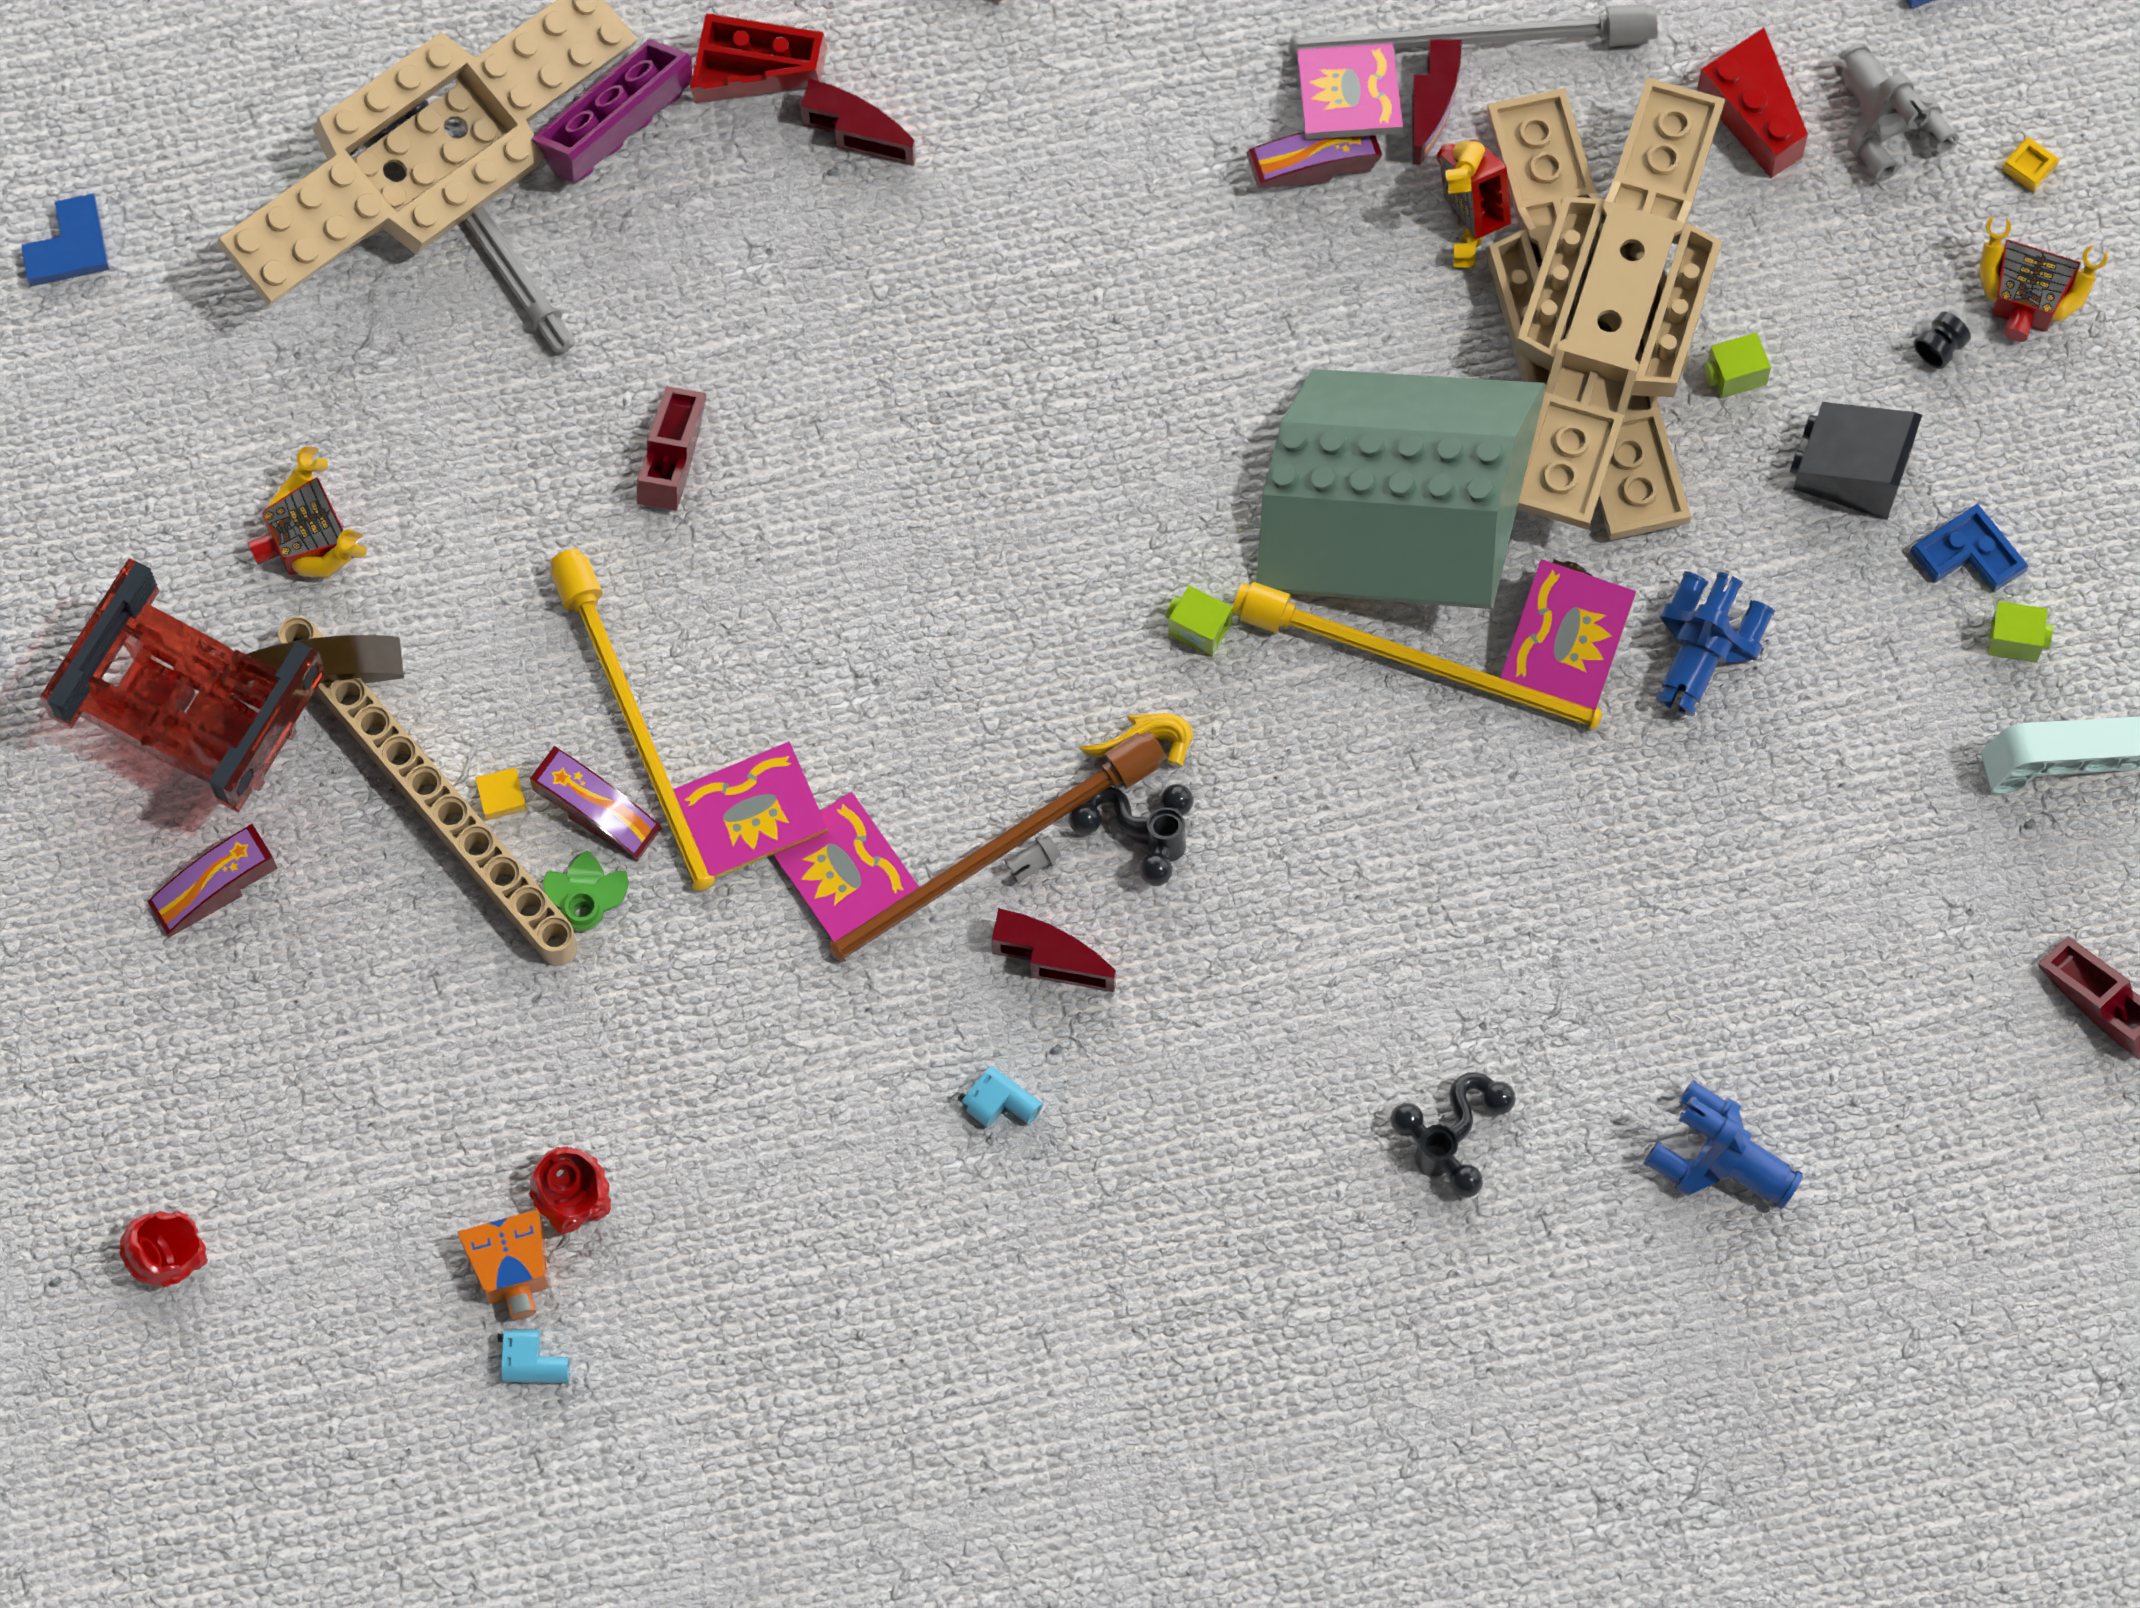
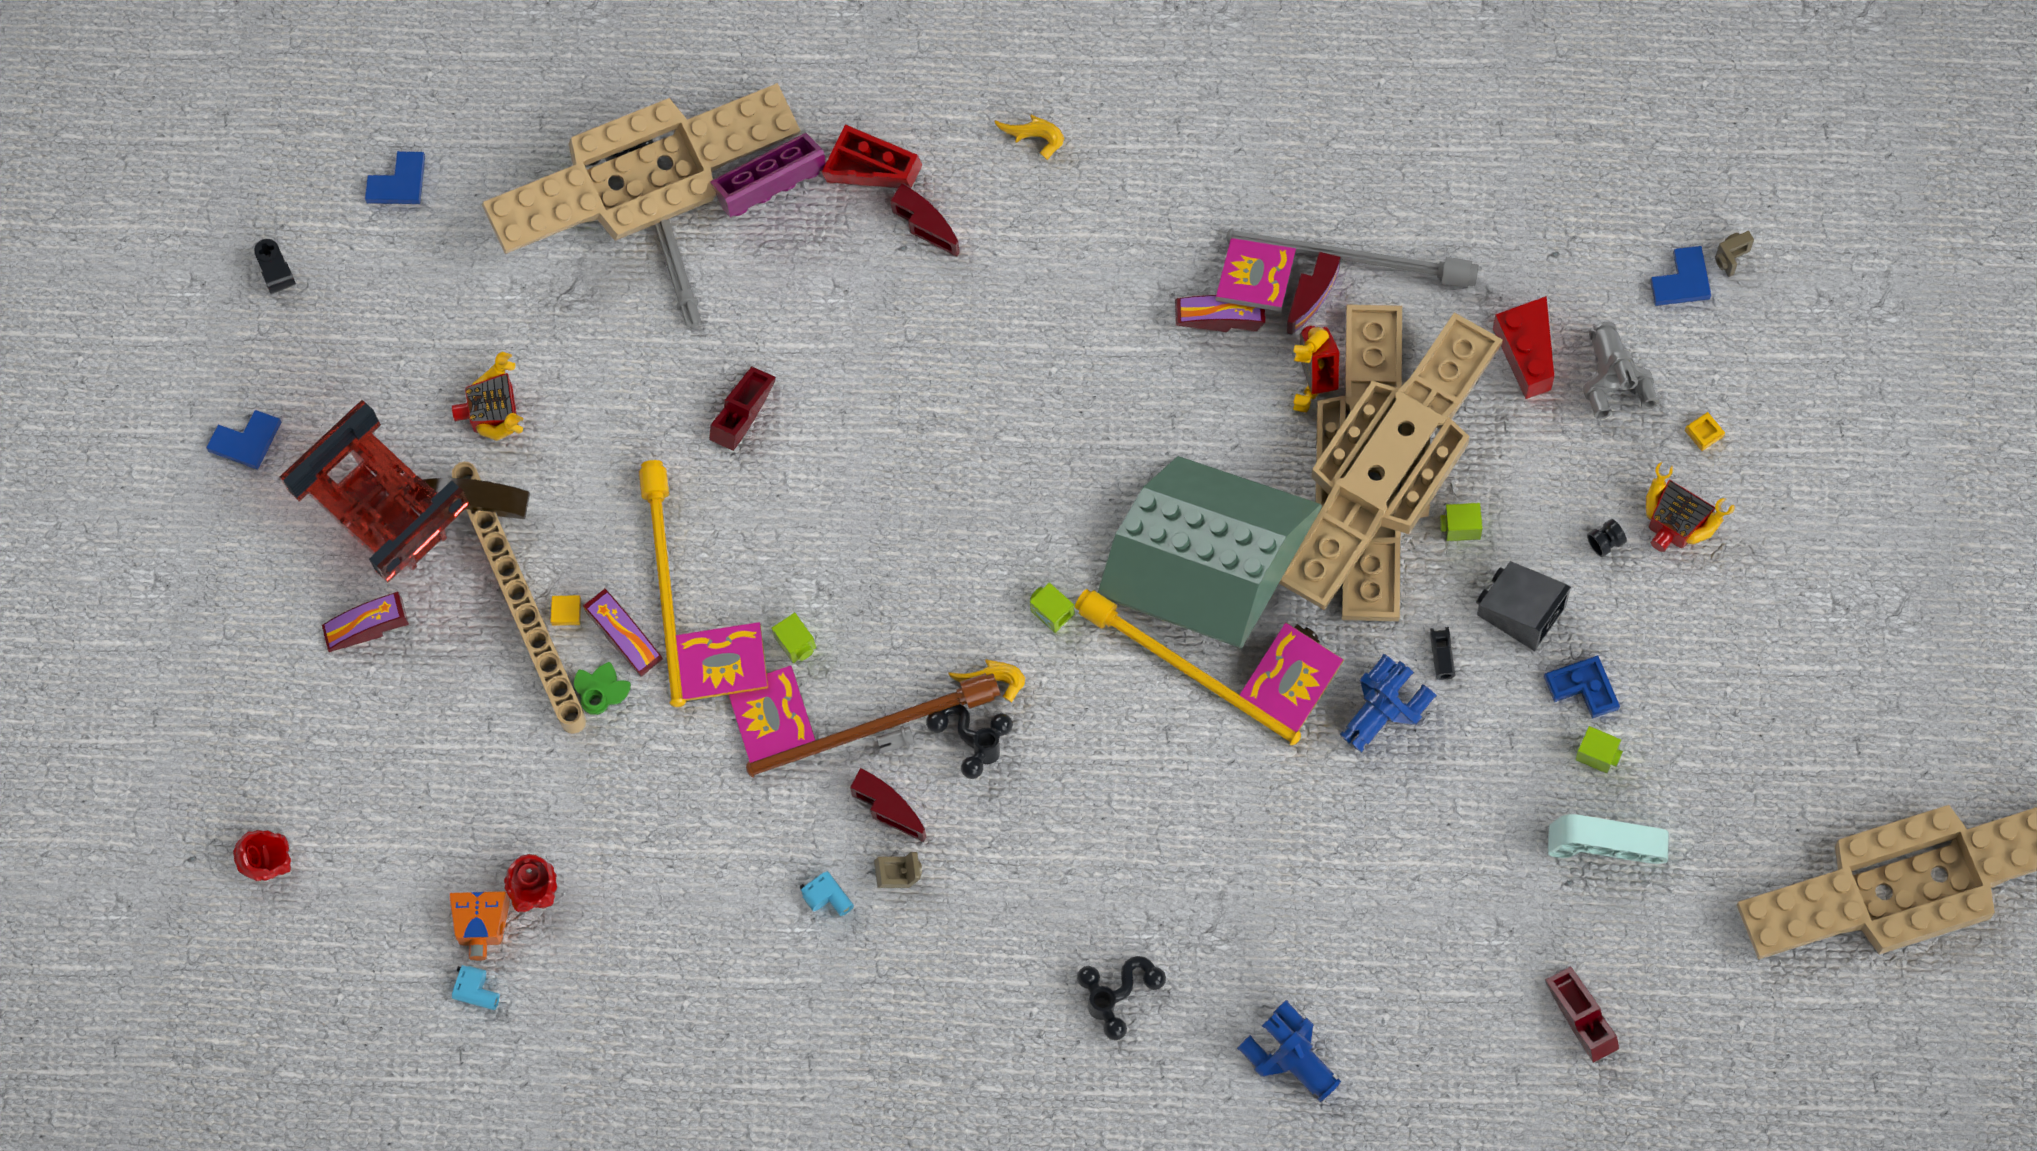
camera: 20 degrees right, 0 degrees up
(845, 752) = (794, 638): none -> lime brick
(1093, 1040) = (898, 871): none -> dark tan bracket
(1765, 554) = (1442, 655): none -> black bar

